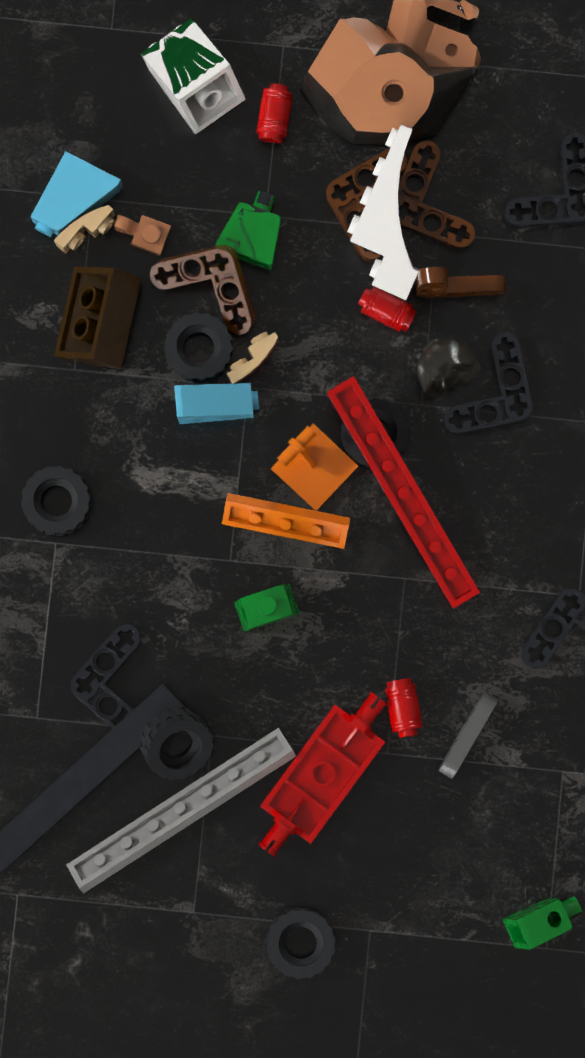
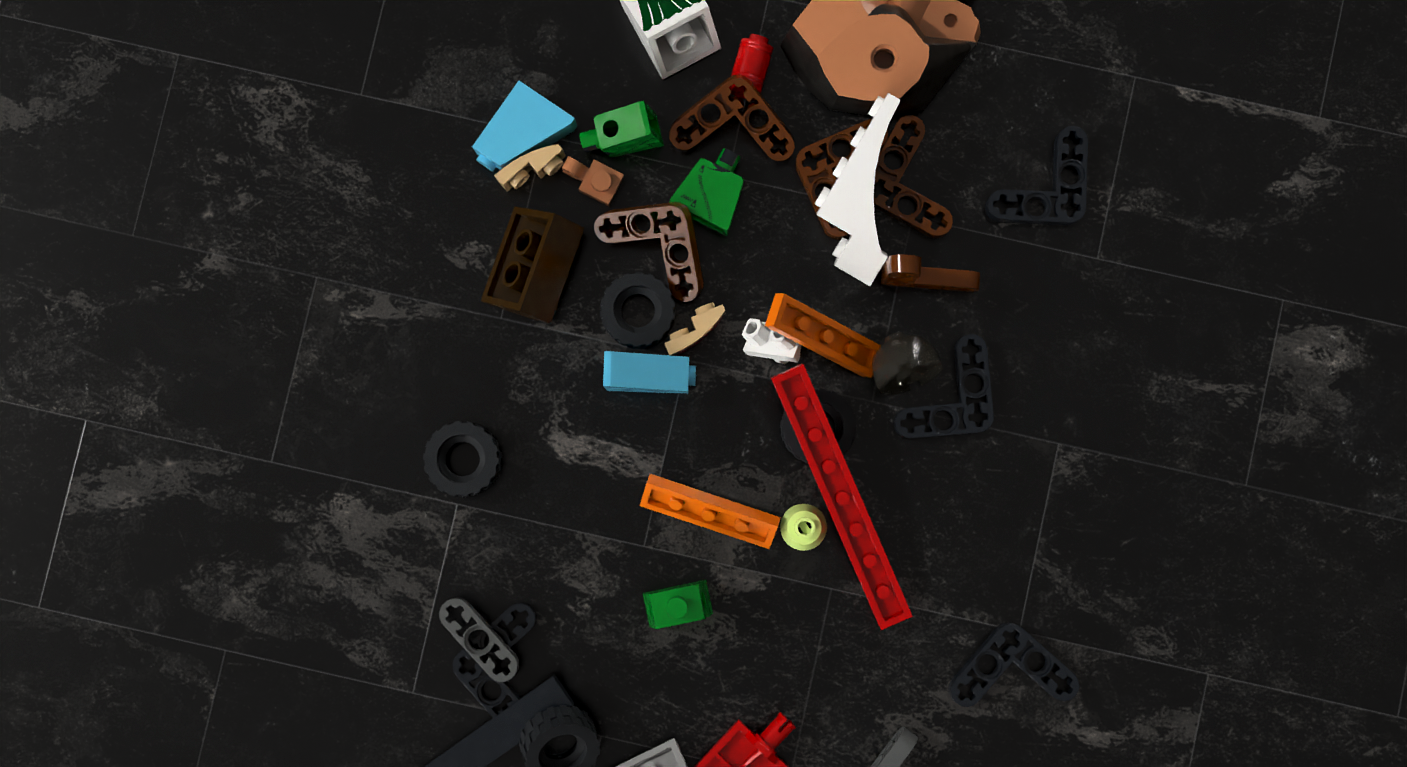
camera: 10 degrees right, 0 degrees up
(69, 650) = (469, 613): none -> dark grey beam
(177, 181) = (636, 129): none -> green torso
(259, 153) = (729, 107): none -> reddish brown beam
(313, 466) = (747, 455): orange plate -> none
(325, 359) = (768, 343): none -> white hips
(367, 348) = (821, 334): none -> orange plate
(380, 532) = (797, 517): none -> yellowish green cone
(387, 308) = (847, 293): red head -> none
(403, 707) = (813, 732): red head -> none

